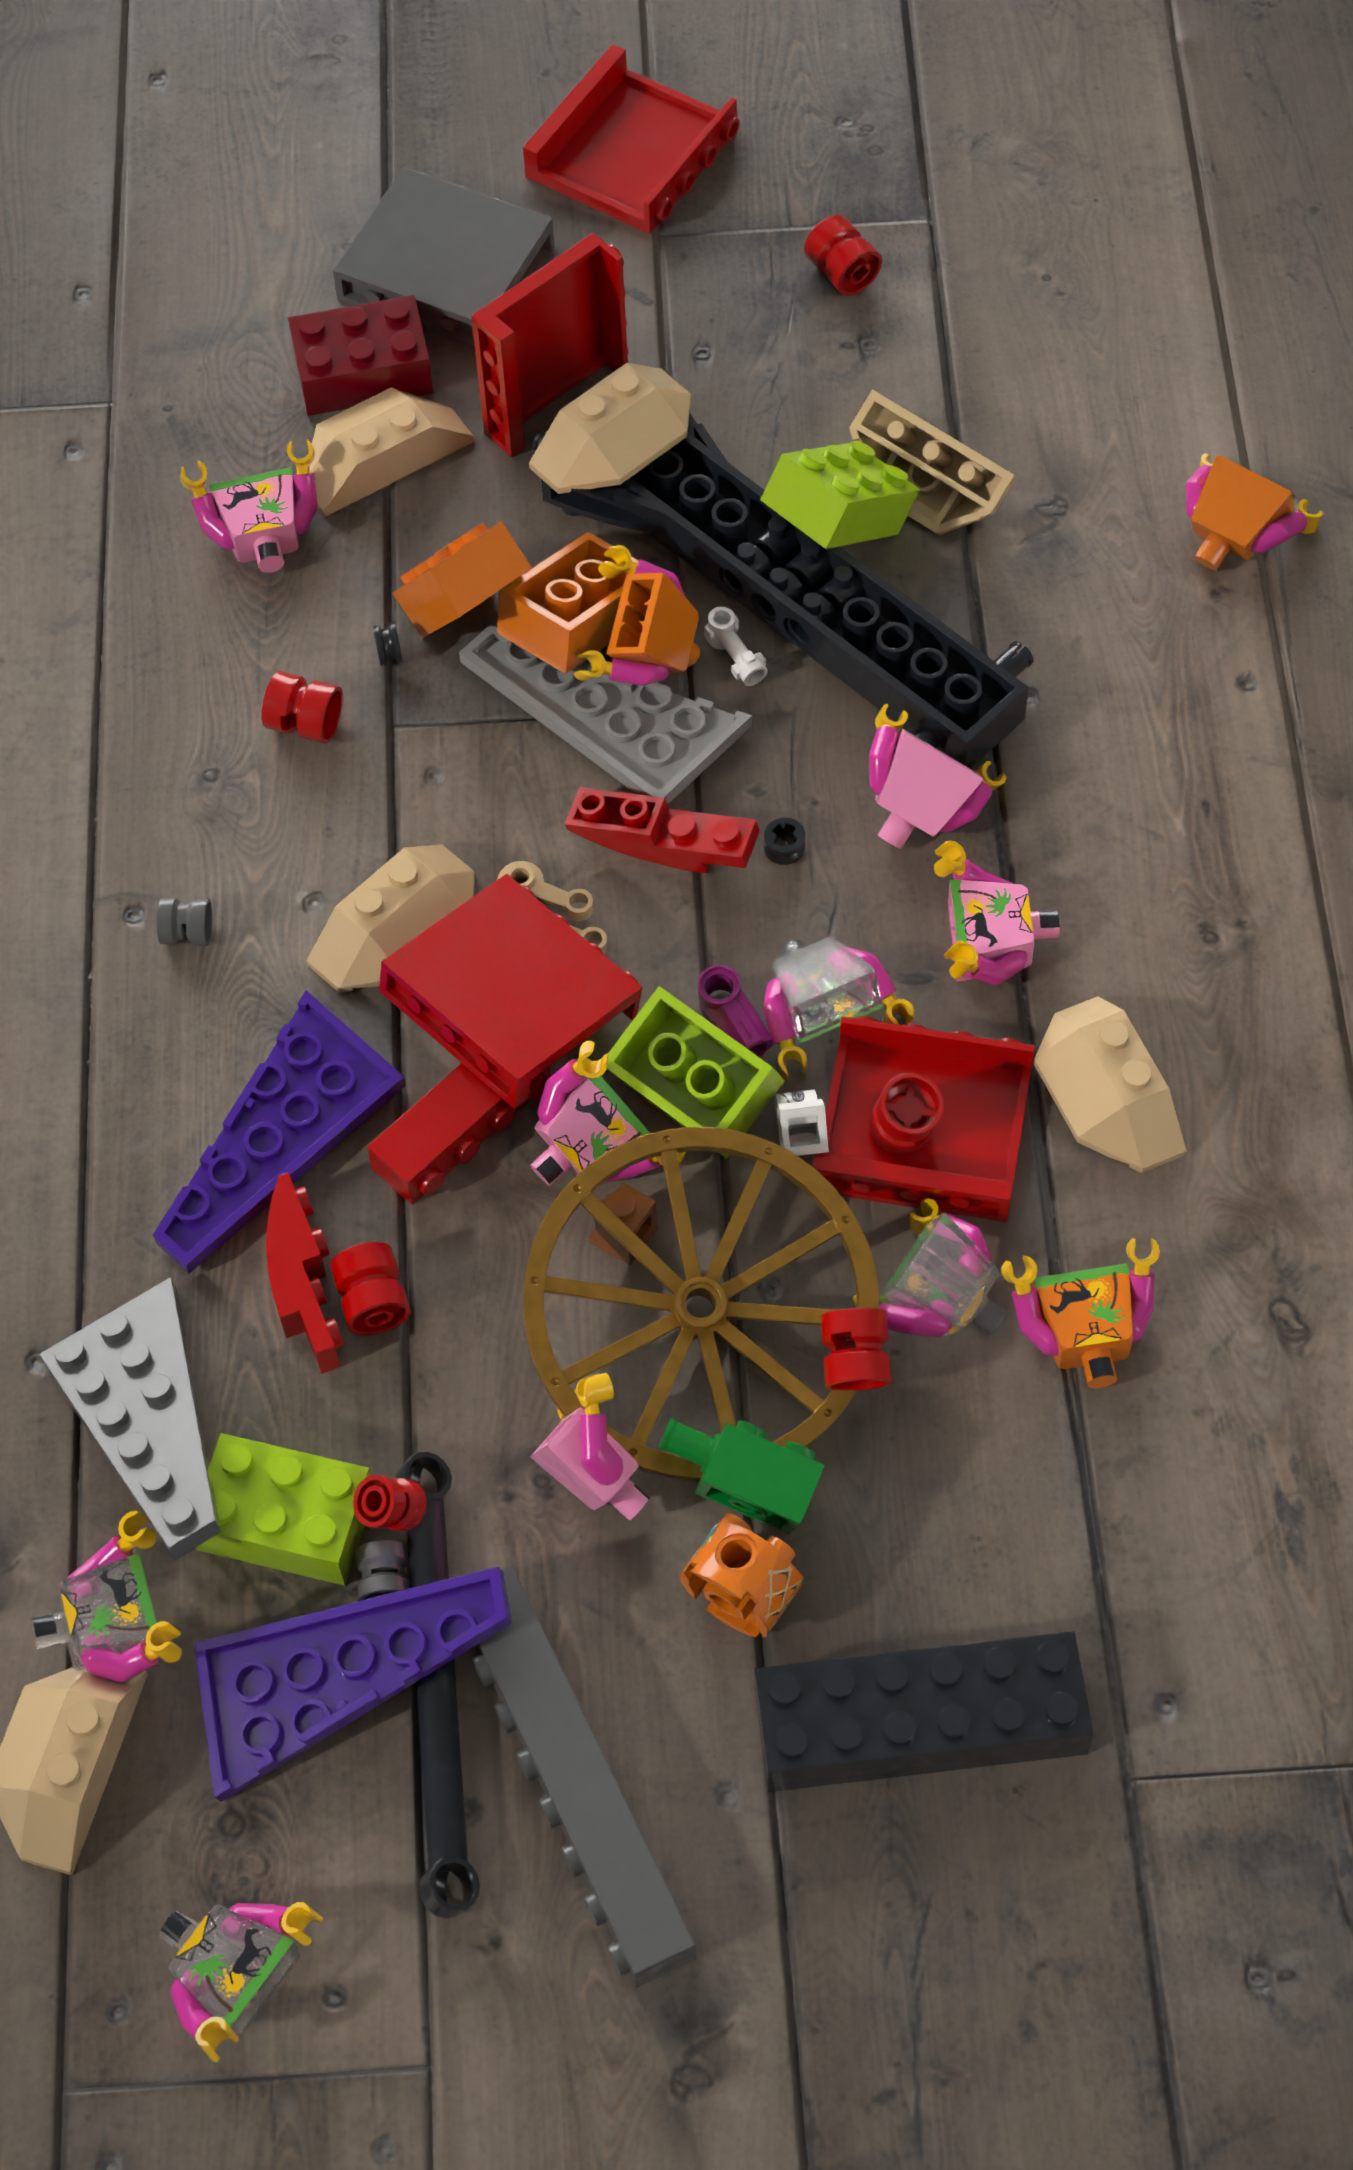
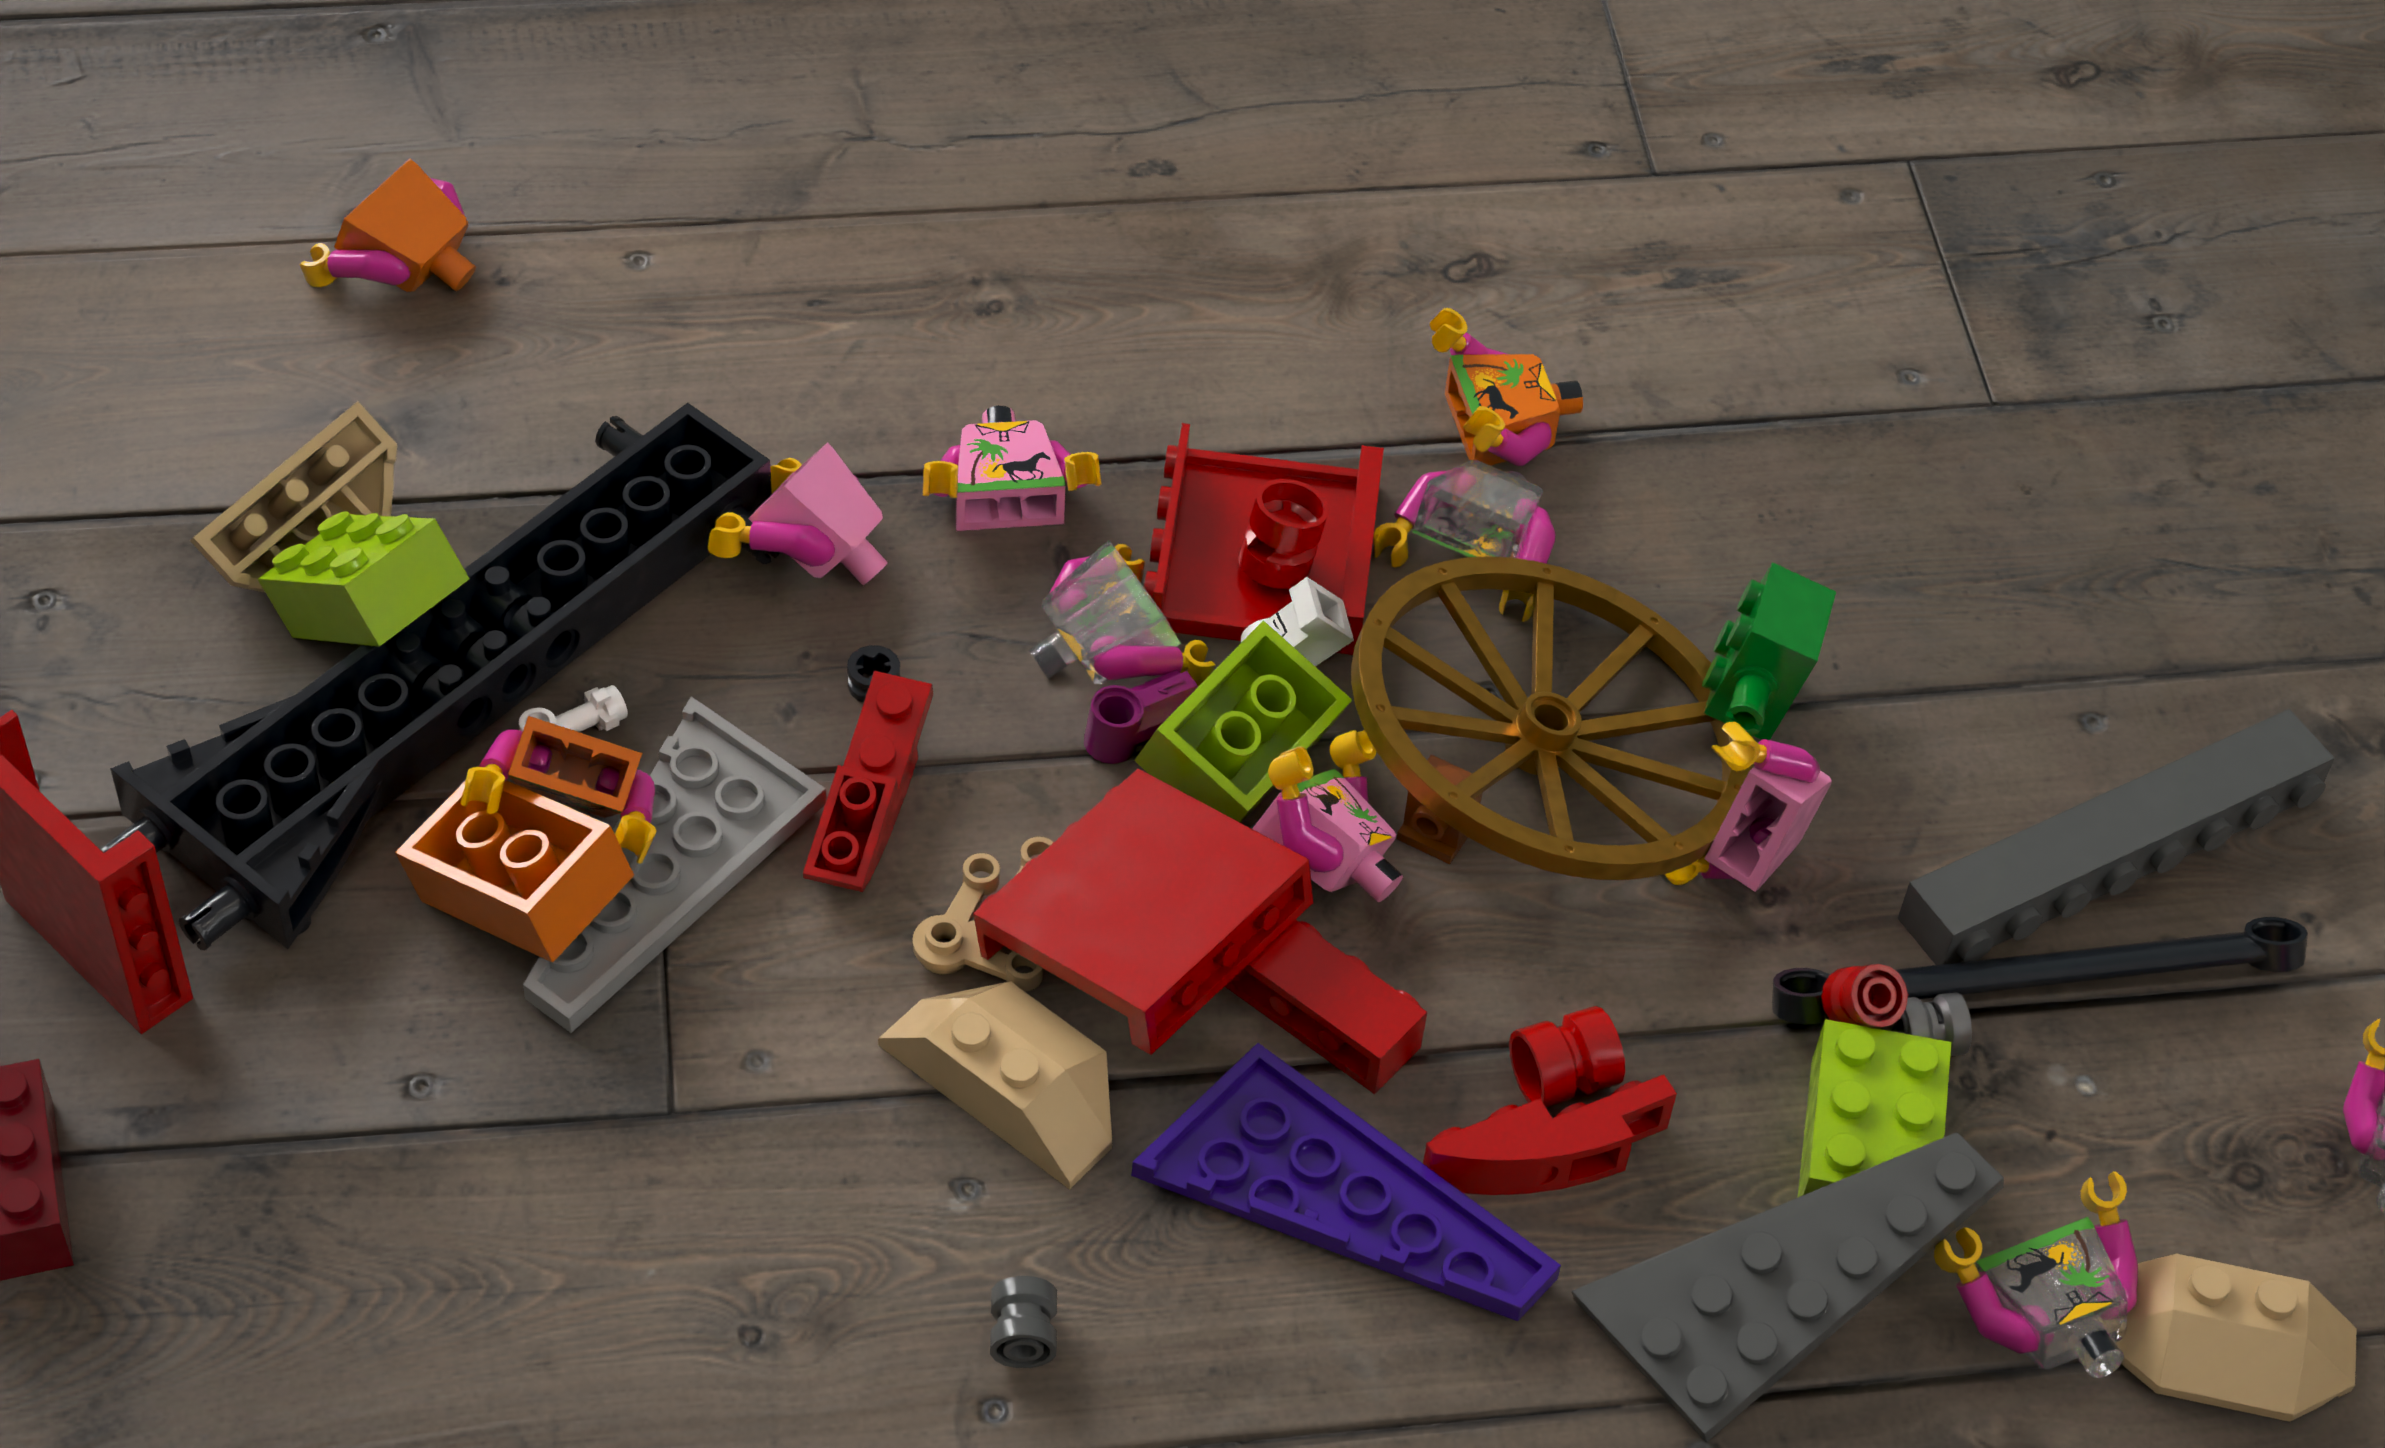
camera: 100 degrees left, 10 degrees down
(258, 513) = (285, 1282): torso -> none
(308, 708) = (659, 1196): red wheel -> none
(308, 1676) = (2068, 1058): dark purple wing -> none
(380, 445) = (166, 1155): tan wedge -> none
(387, 643) = (543, 1111): black bush -> none
(460, 577) = (485, 979): orange brick -> none
(613, 430) = (246, 803): tan wedge -> none
(743, 1576) = (1877, 676): orange brick -> none
(856, 1349) = (1602, 564): red wheel -> none
(922, 1711) = (1983, 546): black brick -> none
(1109, 1086) = (1198, 374): tan wedge -> none

